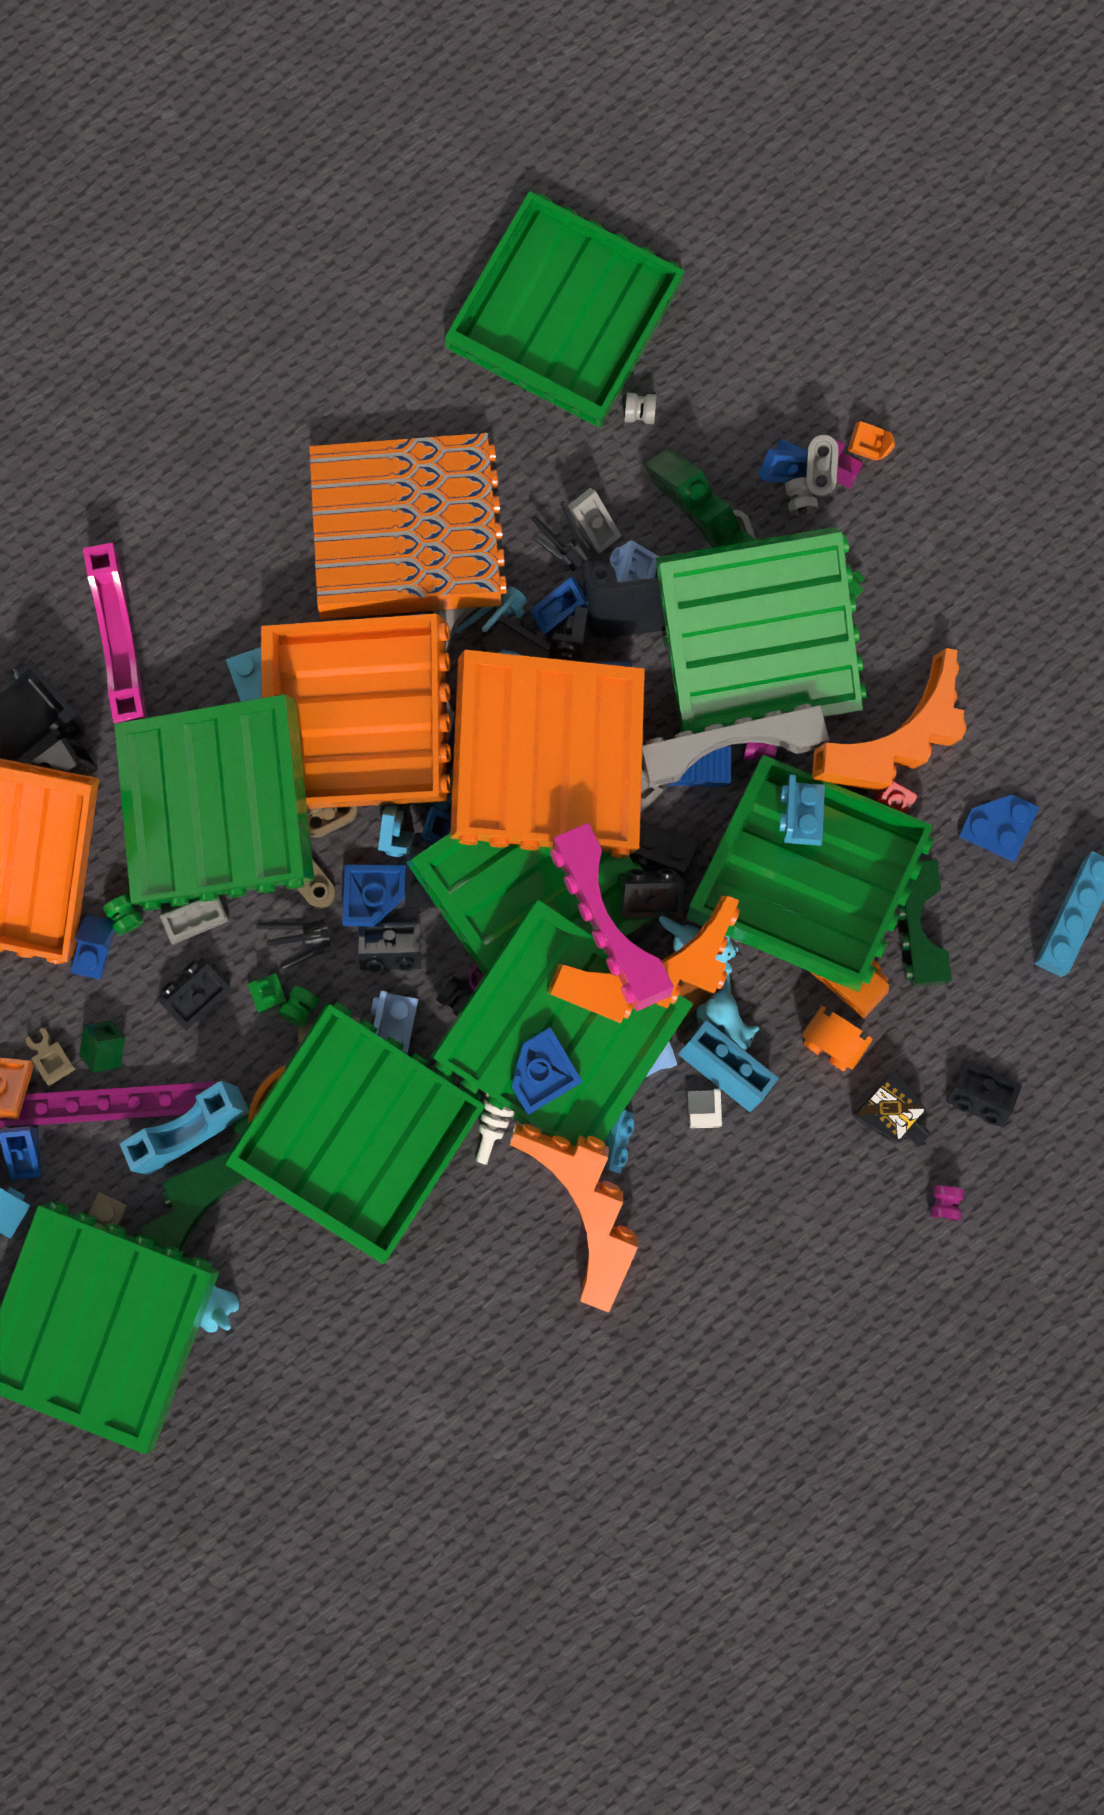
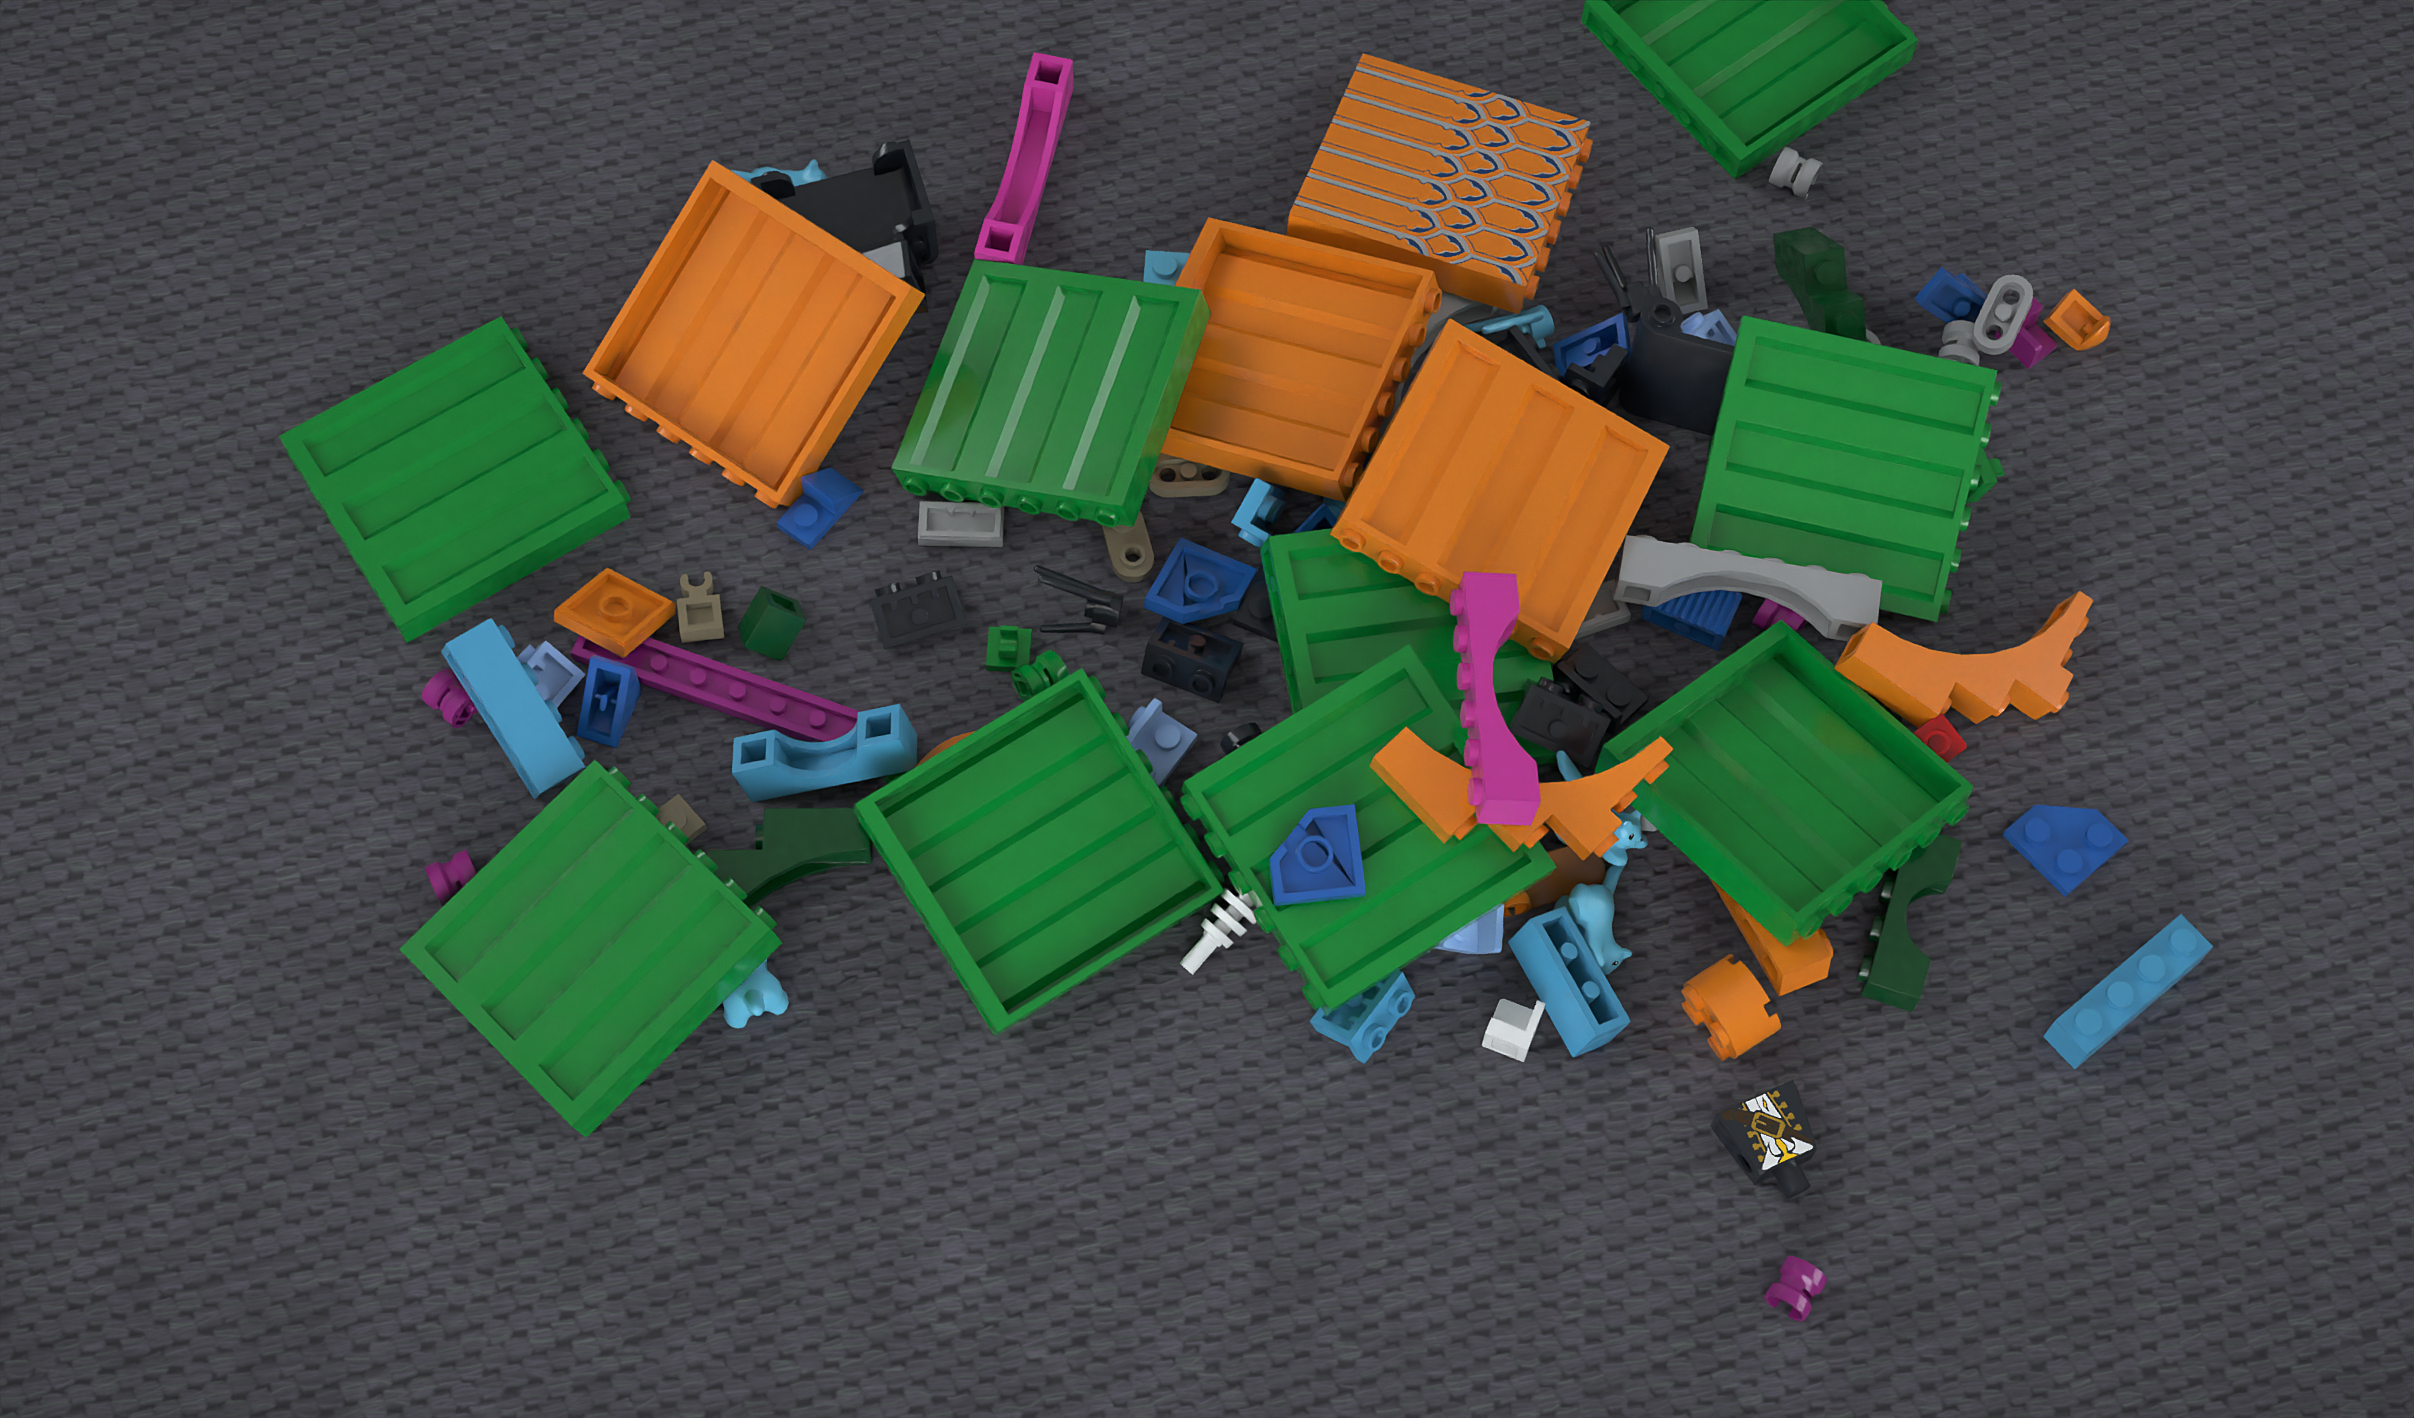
camera: 25 degrees right, 15 degrees down
(123, 914) = (875, 482): green wheel -> none
(599, 1204) = (1311, 1009): orange arch -> none
(803, 812) = (1804, 701): dark azure bracket -> none
(984, 1093) = (1905, 1170): black bracket -> none

